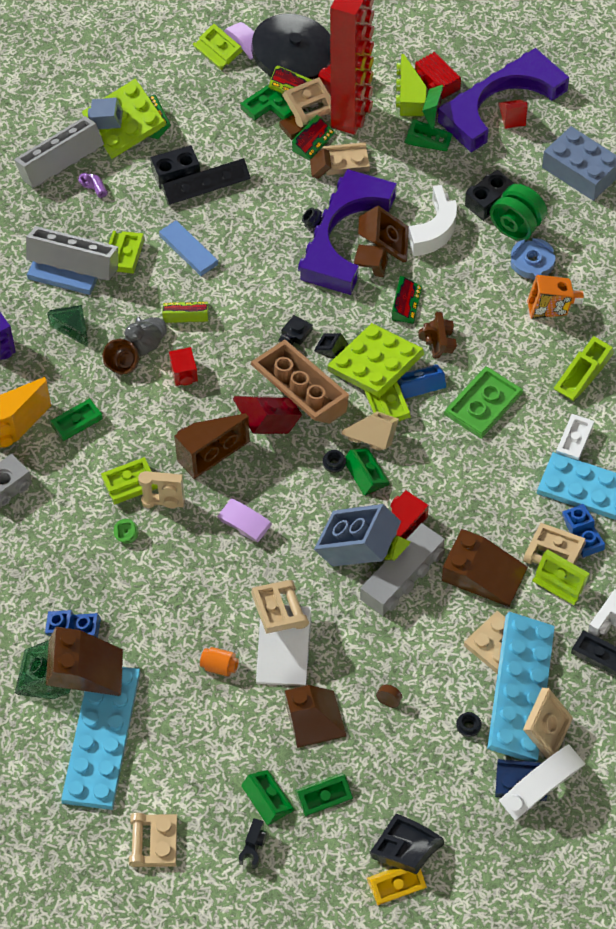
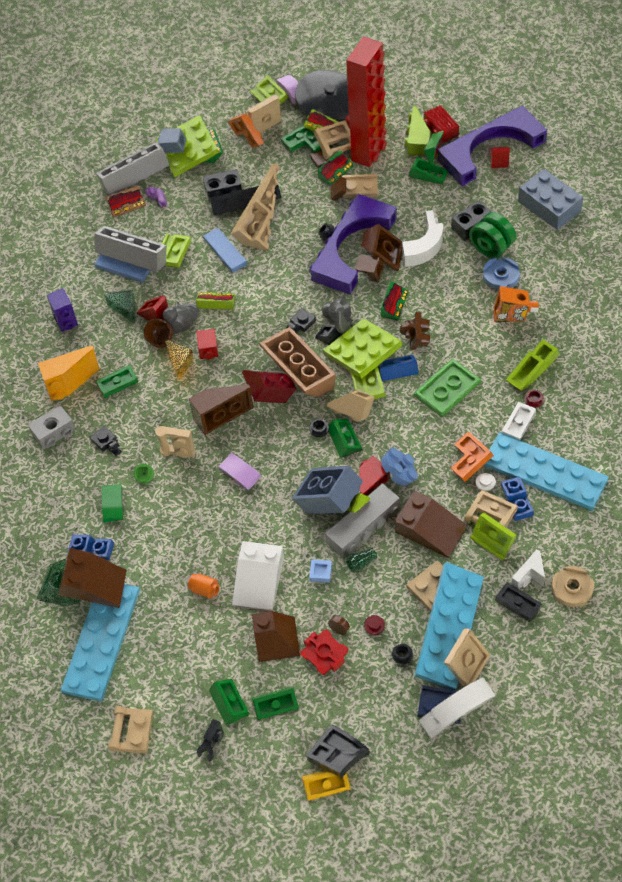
camera: 10 degrees right, 0 degrees up
(54, 193) = (125, 201): none -> slope
(71, 493) = (105, 439): none -> black plate
(92, 569) = (112, 503): none -> green slope
(110, 326) = (153, 308): none -> red slope
(123, 481) = (144, 432): lime plate -> none
(151, 385) = (180, 357): none -> clear yellow slope
(194, 89) = (244, 125): none -> orange plate
(217, 75) = (265, 113): none -> tan plate
(221, 213) = (254, 223): none -> tan wedge
(272, 609) = (249, 547): tan plate -> none
(341, 318) = (339, 312): none -> dark grey hair
(358, 633) = (320, 571): none -> light blue plate
(375, 729) = (324, 652): none -> red piece
(405, 617) = (358, 561): none -> clear green cone
(431, 693) = (374, 625): none -> dark red plate
(440, 501) = (399, 466): none -> medium blue plate
(527, 483) = (474, 456): none -> orange plate
(543, 513) = (485, 482): none -> white plate
(589, 409) = (534, 398): none -> dark red plate

